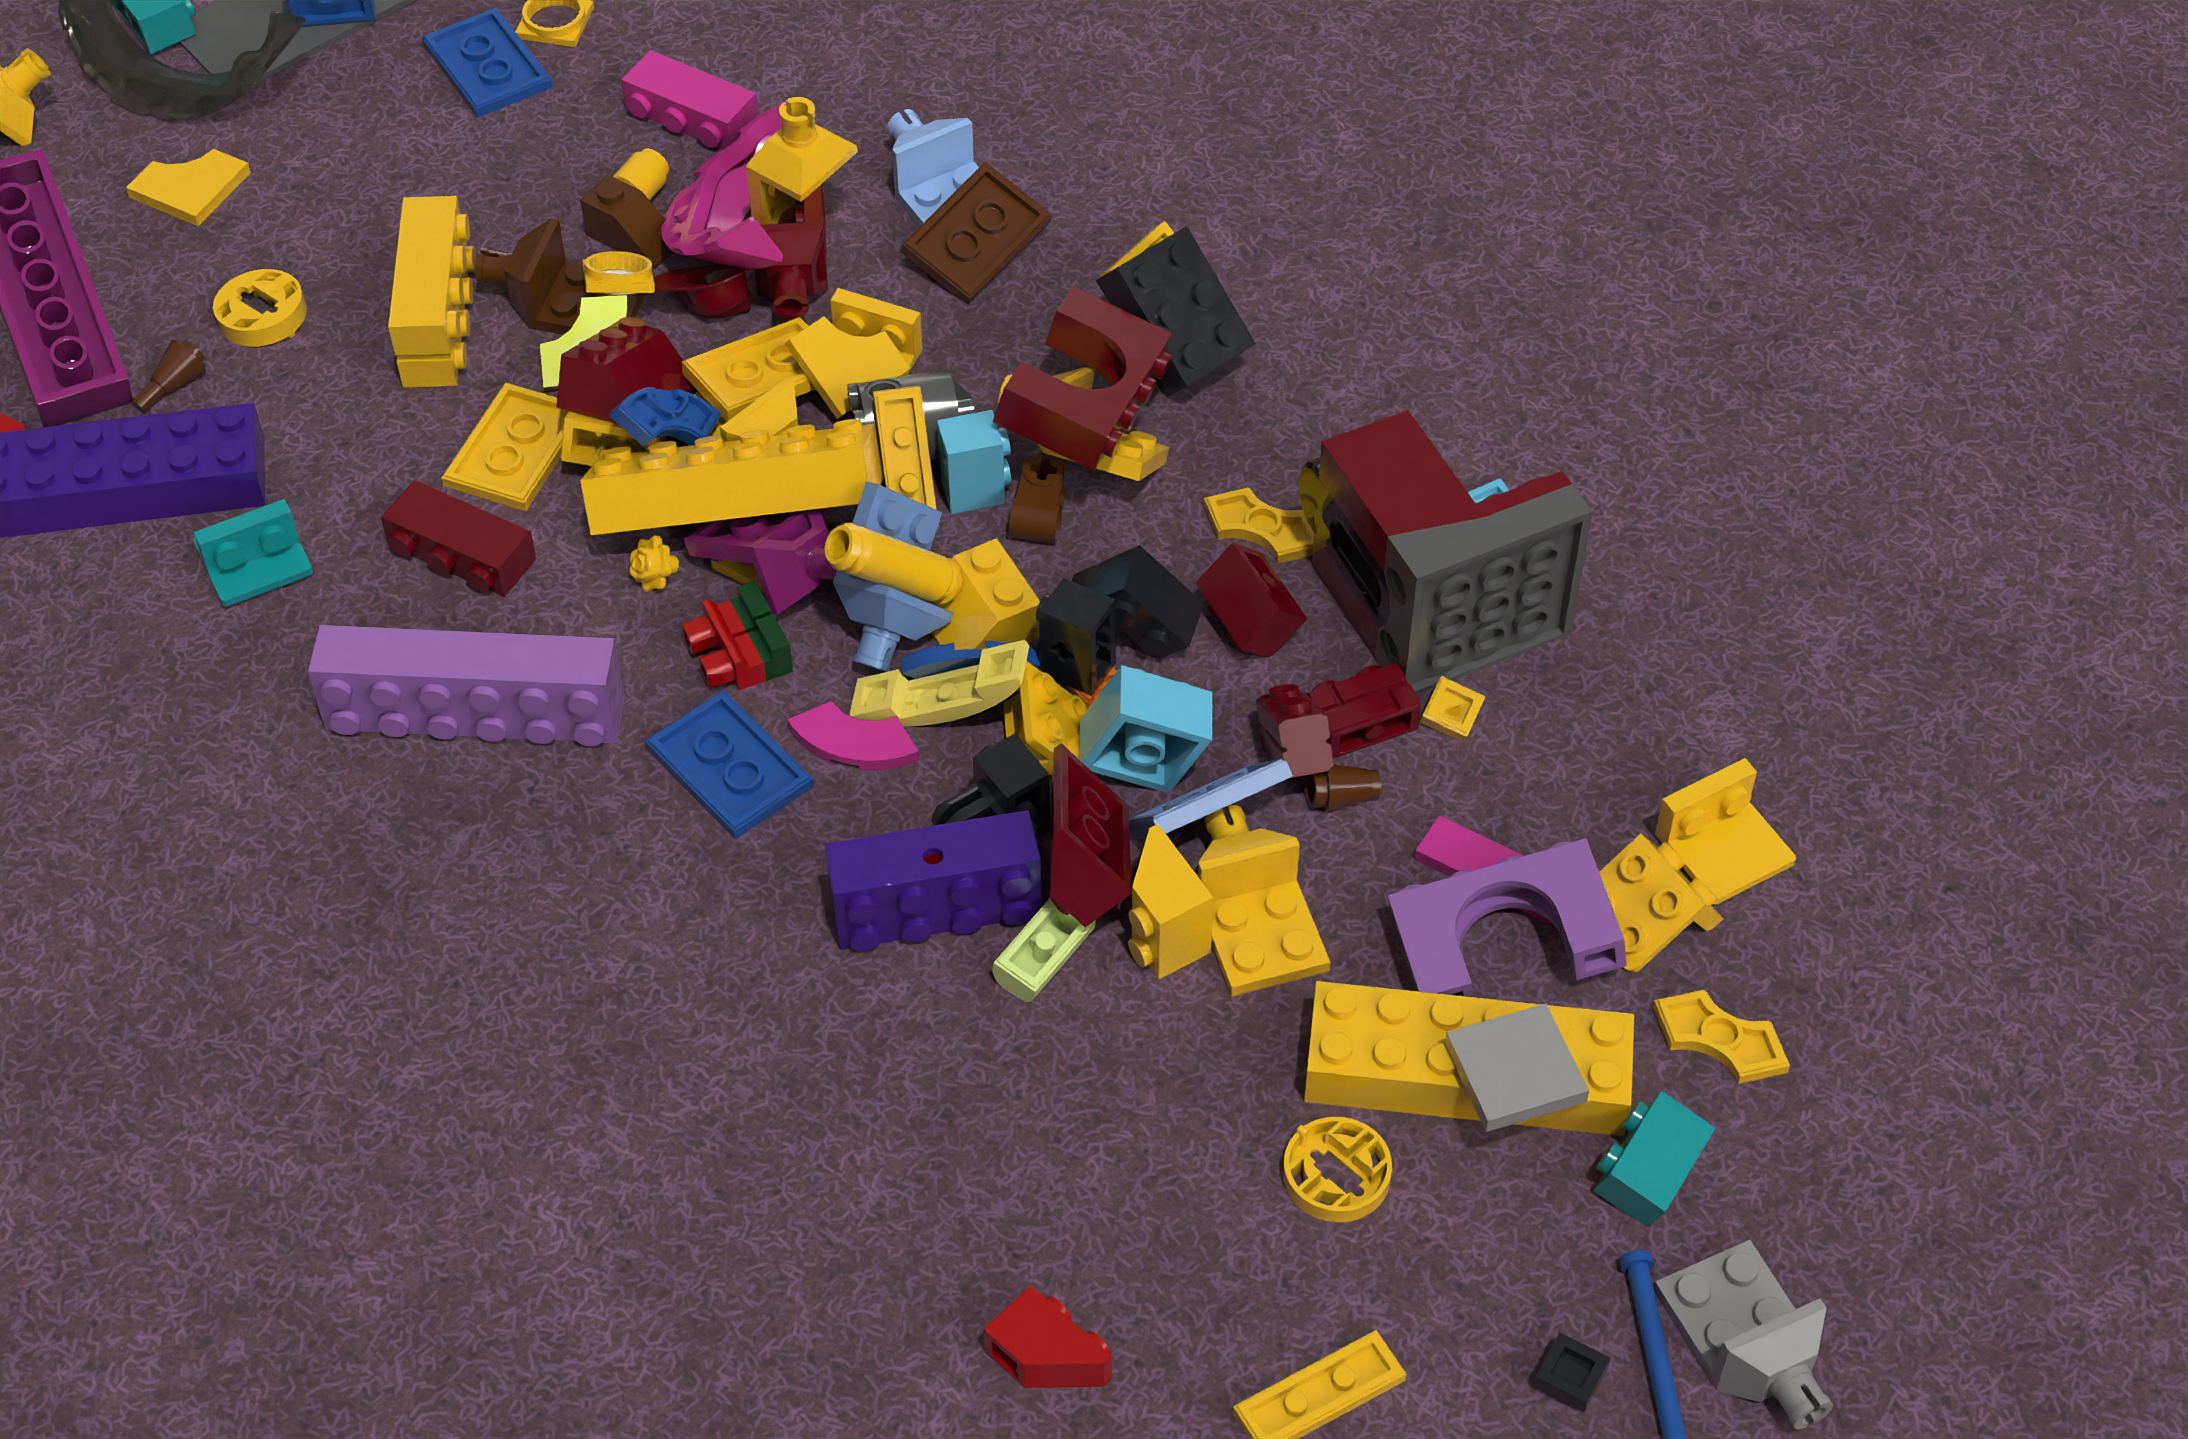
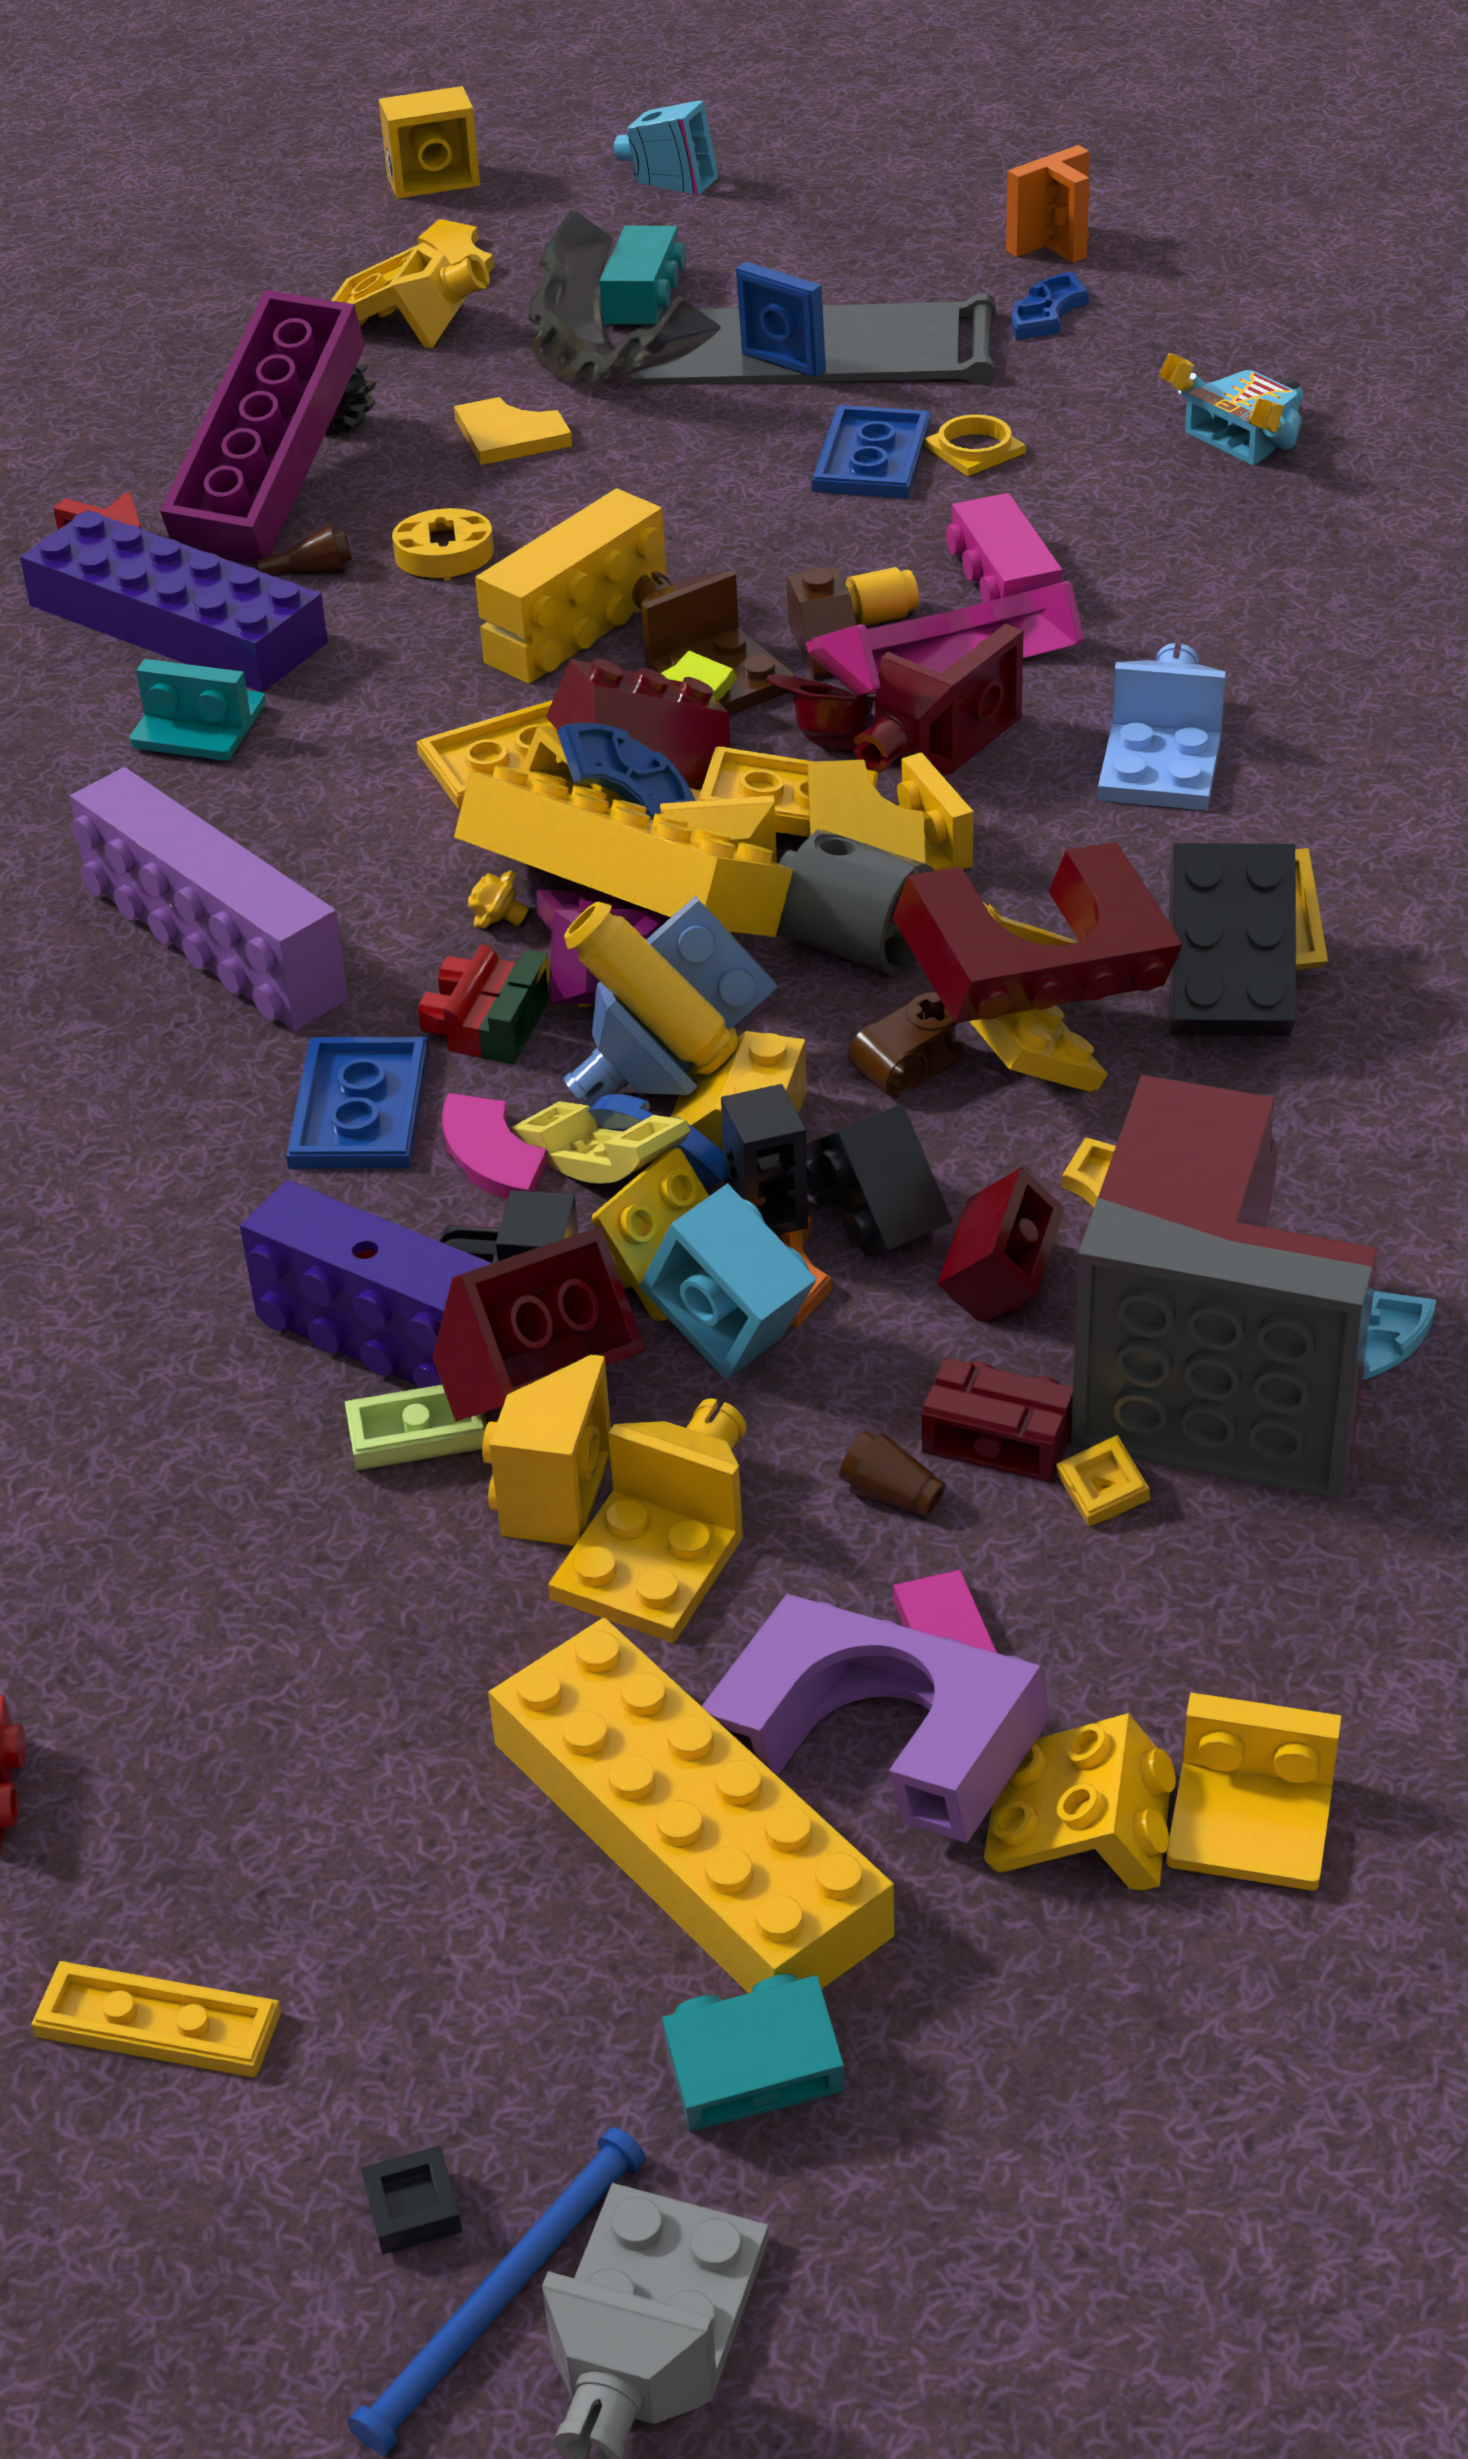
camera: 45 degrees right, 10 degrees down
(458, 539) = (361, 792): dark red brick -> none
(618, 273) = (746, 648): yellow piece -> none
(793, 163) = (1002, 613): yellow plate -> none
(904, 443) = (807, 921): yellow tile -> none
(973, 461) = (866, 964): medium azure brick -> none
(976, 233) = (1140, 788): reddish brown tile -> none
(1210, 797) = (745, 1391): medium blue tile -> none
(1294, 730) = (879, 1379): dark red brick -> none
(1354, 1152) = (400, 1825): yellow piece -> none
(1516, 1067) = (682, 1833): light grey tile -> none
(1743, 1046) = (1018, 2029): yellow tile -> none

